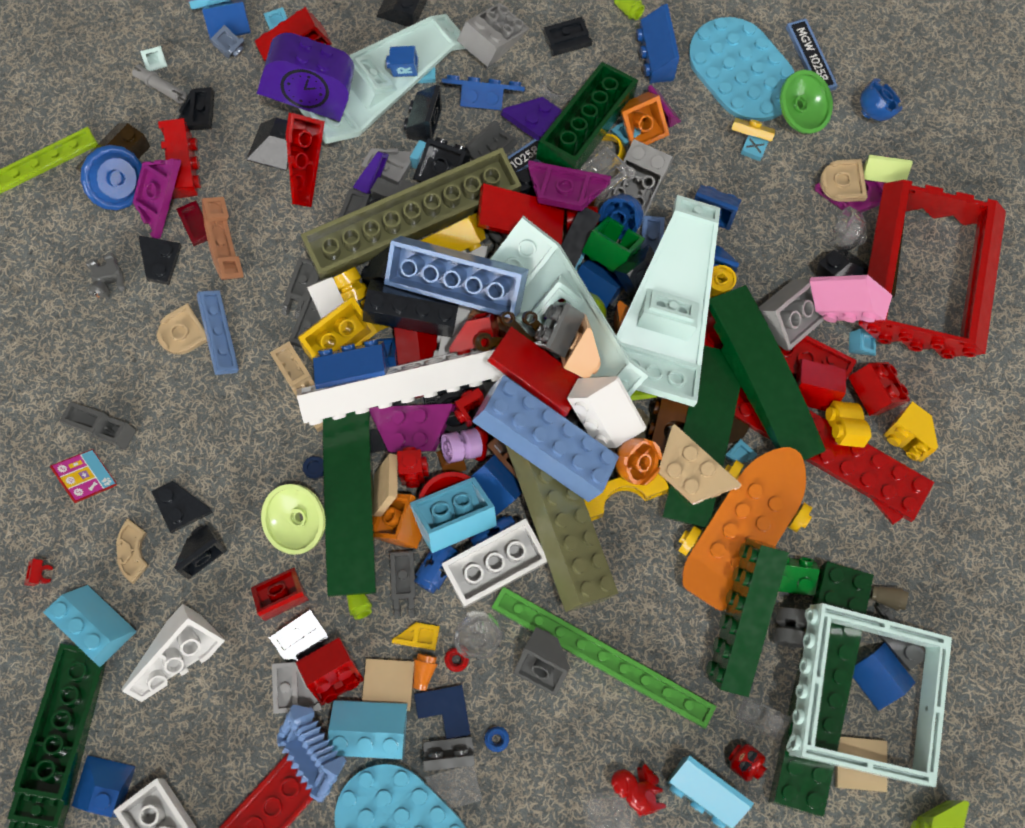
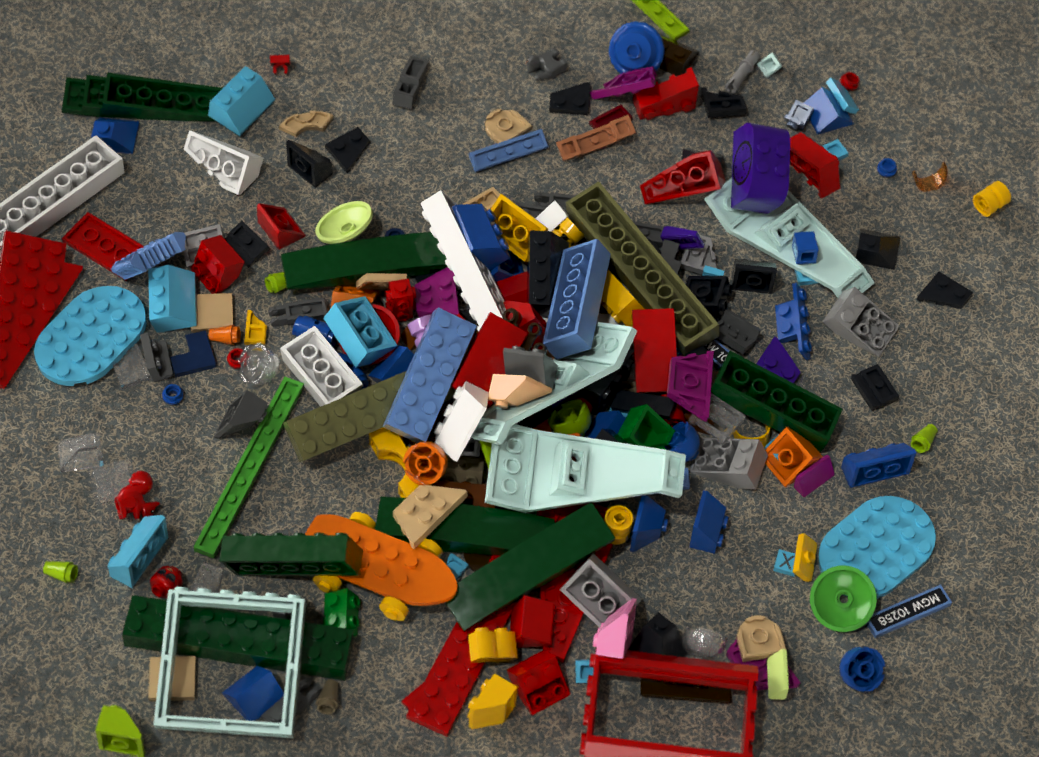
camera: 80 degrees right, 15 degrees down
(83, 476) = (364, 78): piece -> none

